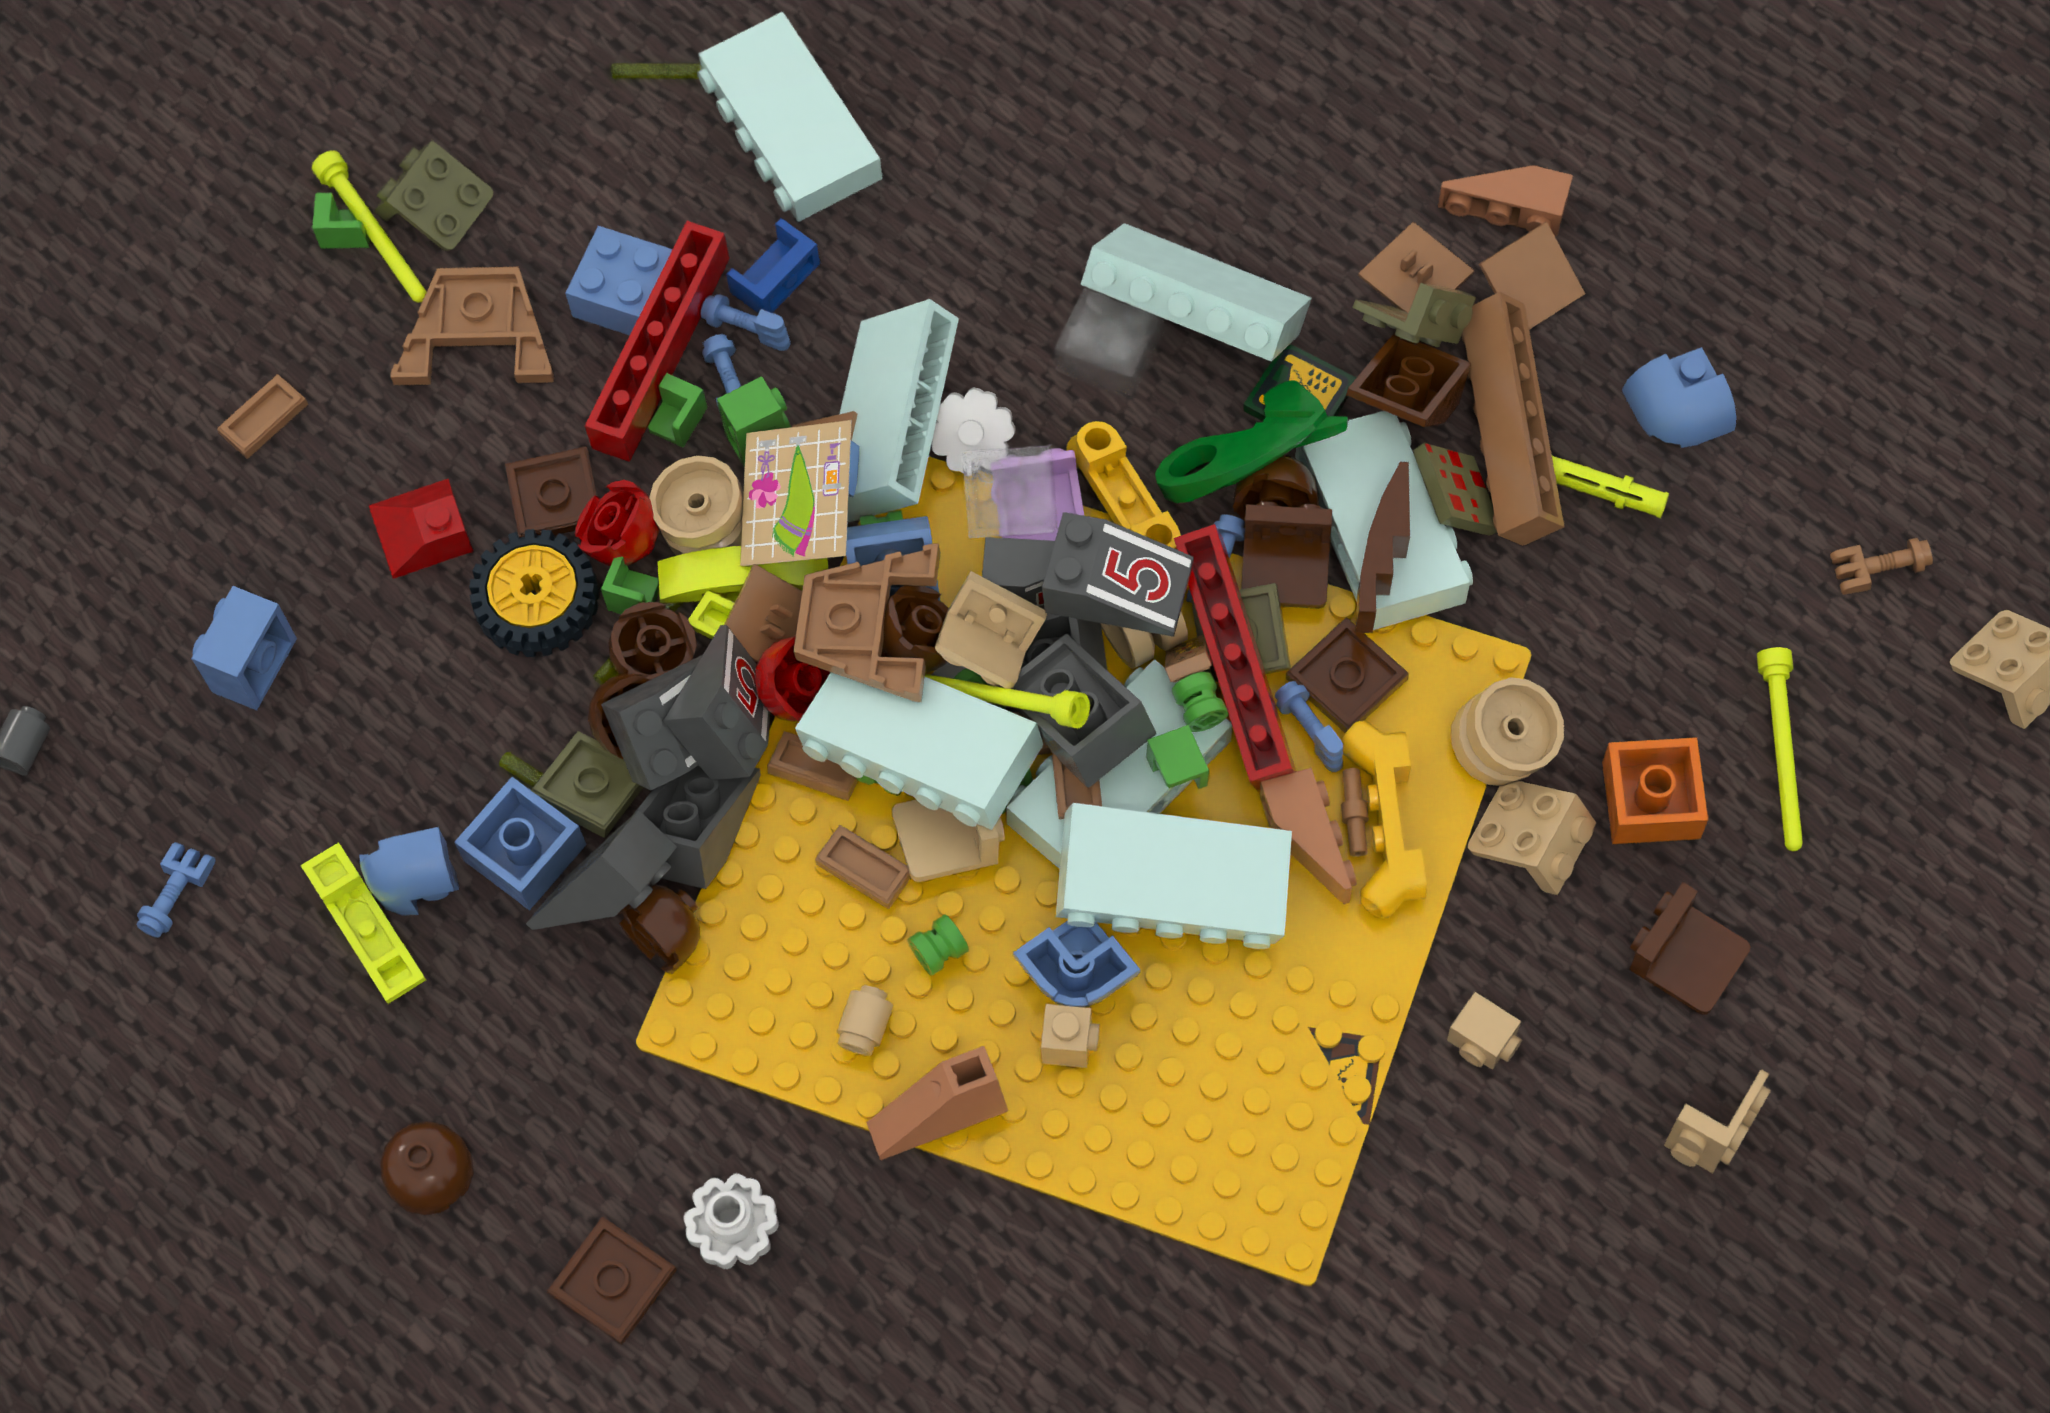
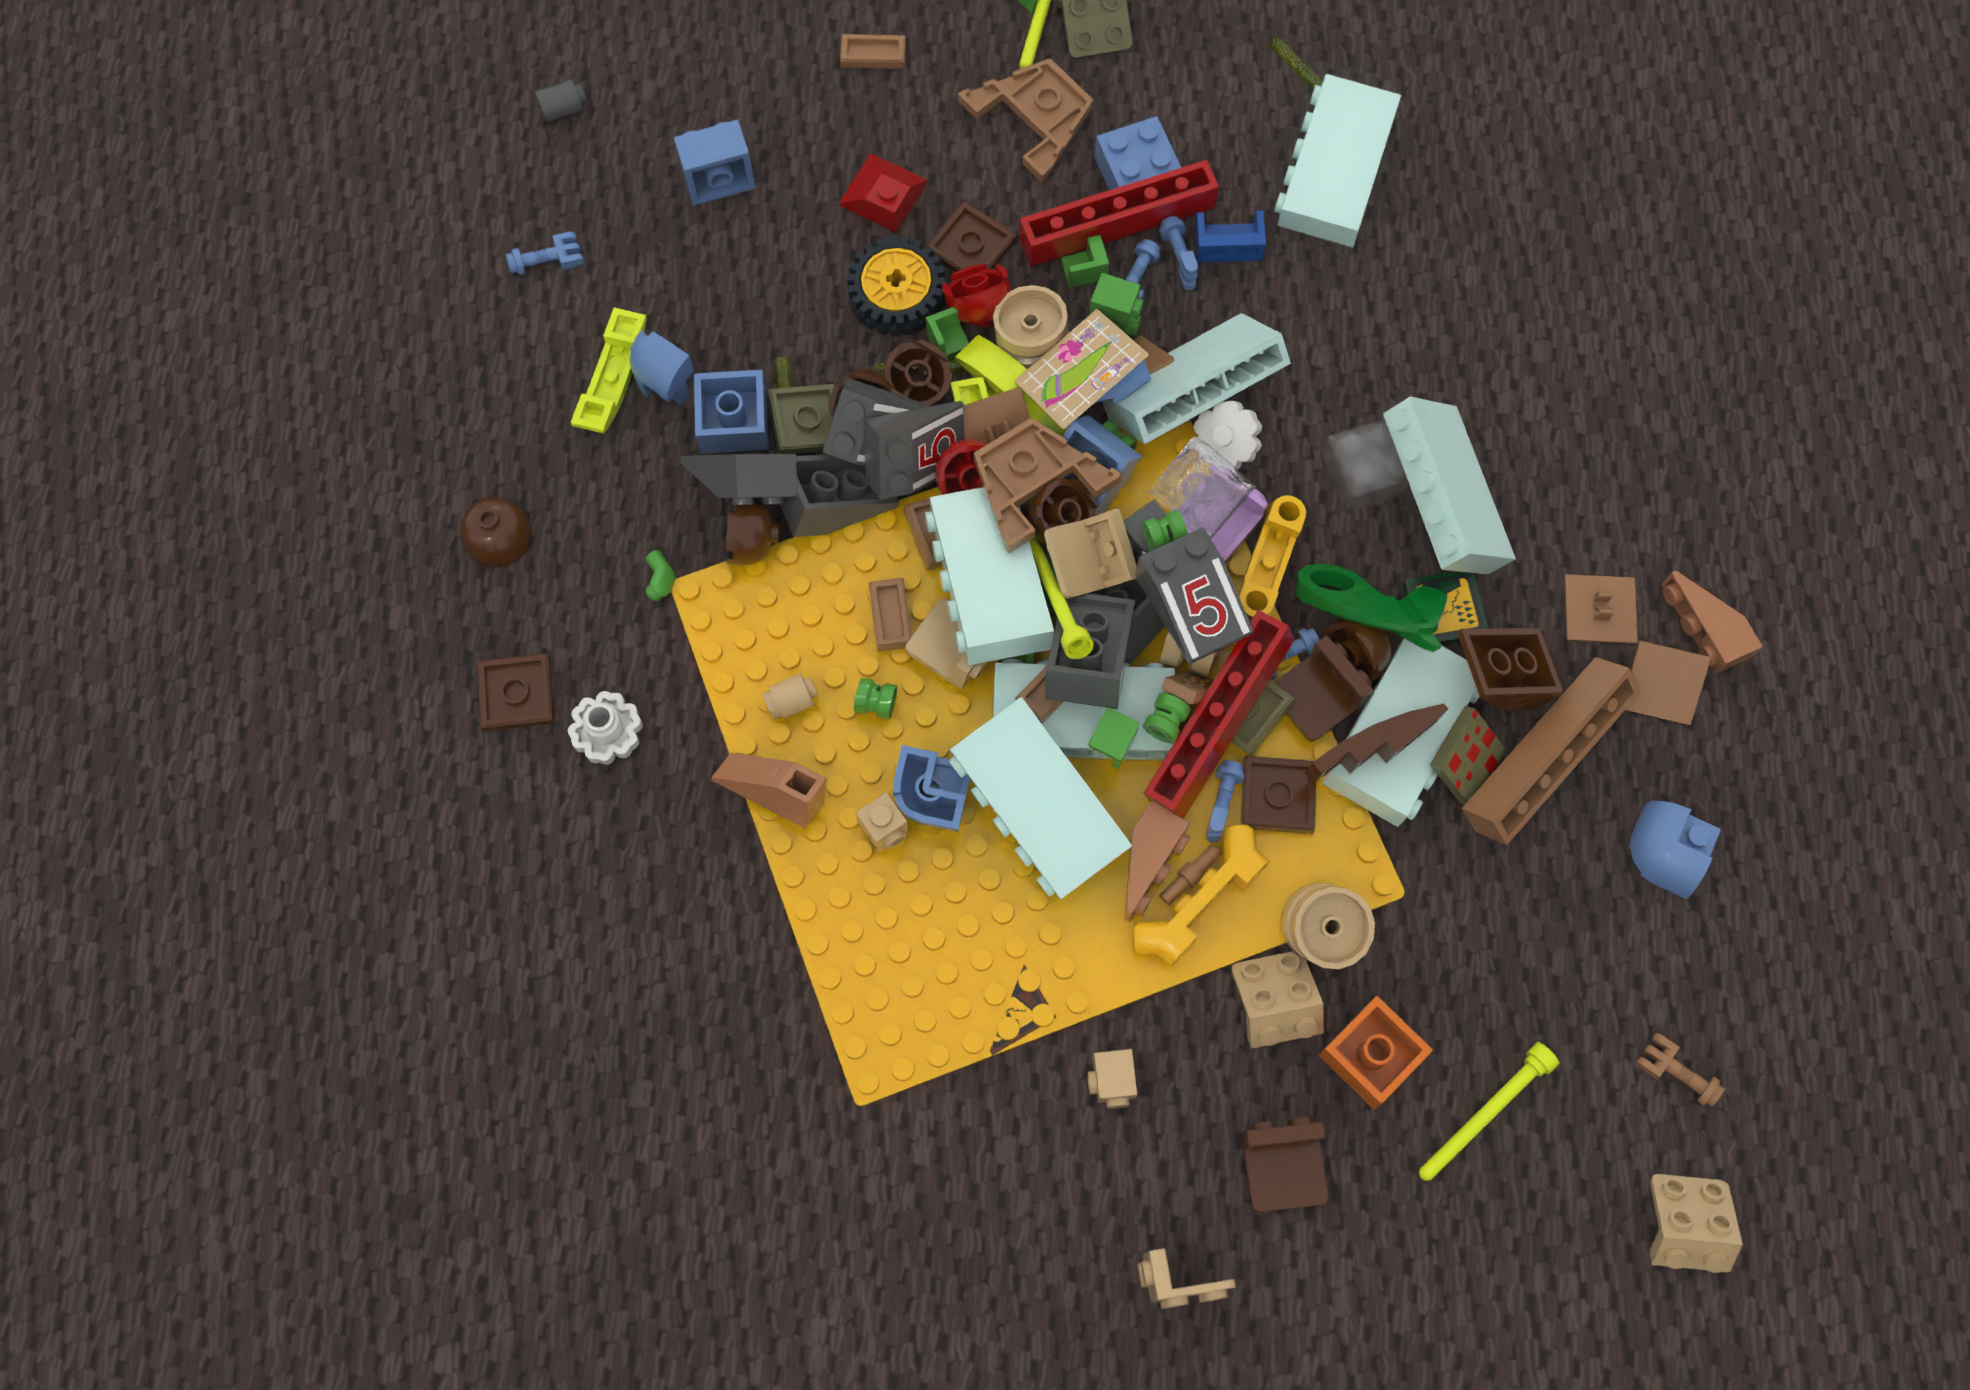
camera: 45 degrees right, 5 degrees up
(626, 1047) = (663, 576): none -> bright green arm
(1031, 551) = (1163, 530): none -> bright green wheel
(1434, 316) = (1569, 638): olive bracket -> none
(1652, 500) = (1568, 859): neon yellow pin -> none

